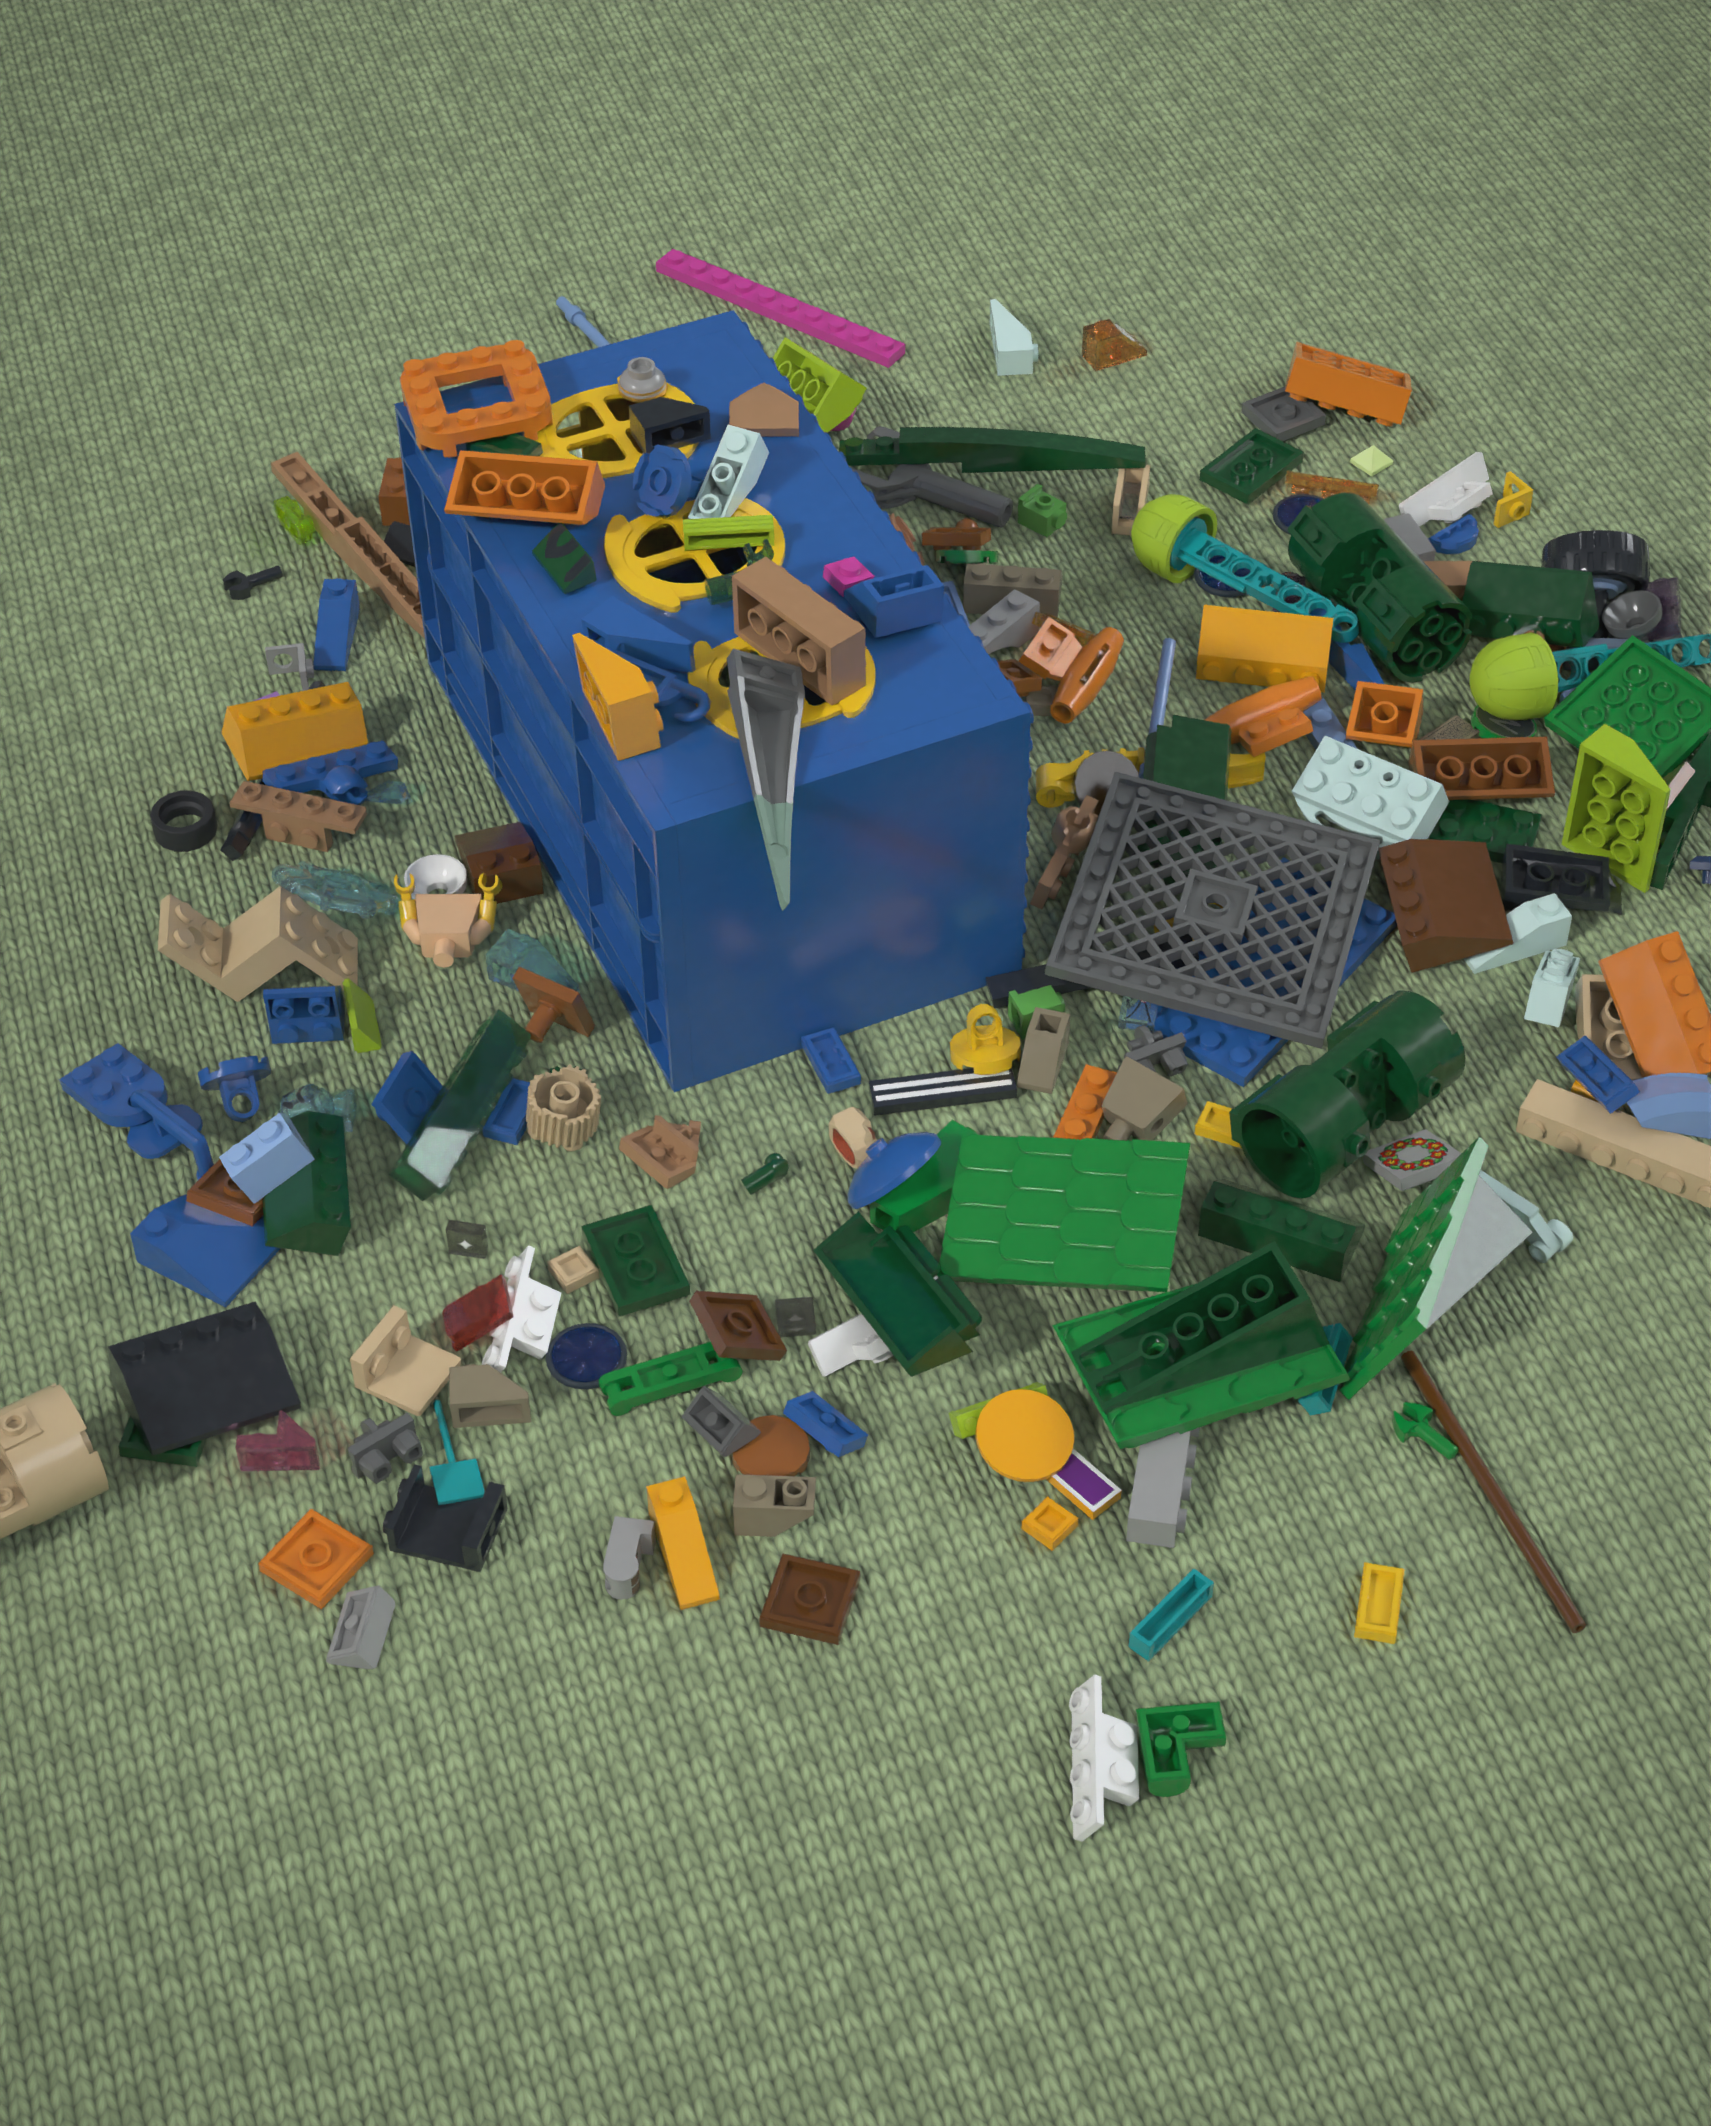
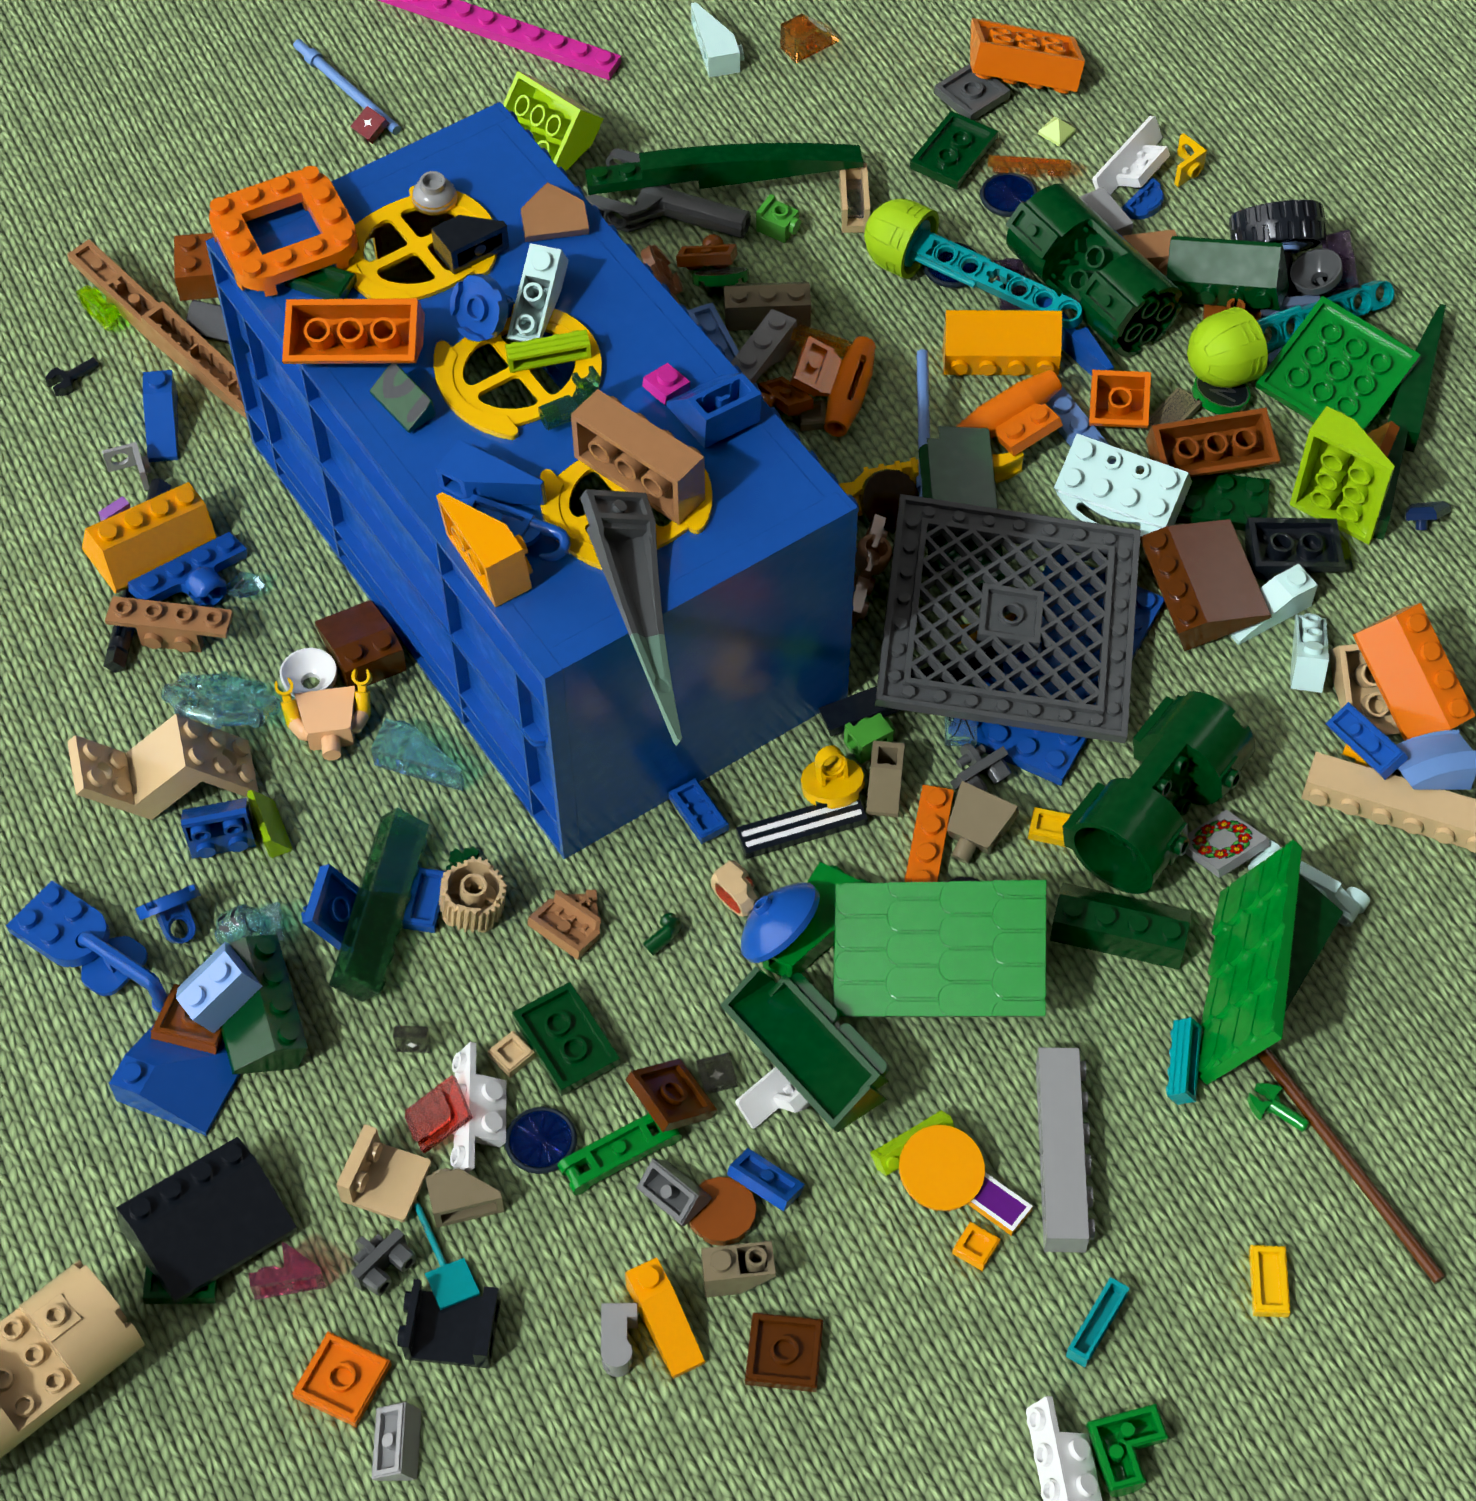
camera: 10 degrees left, 10 degrees up
(179, 804) = (58, 621): black tyre -> none
(551, 1004) = (440, 793): dark orange tile -> none
(1203, 1351) = (1080, 1068): dark green piece -> none

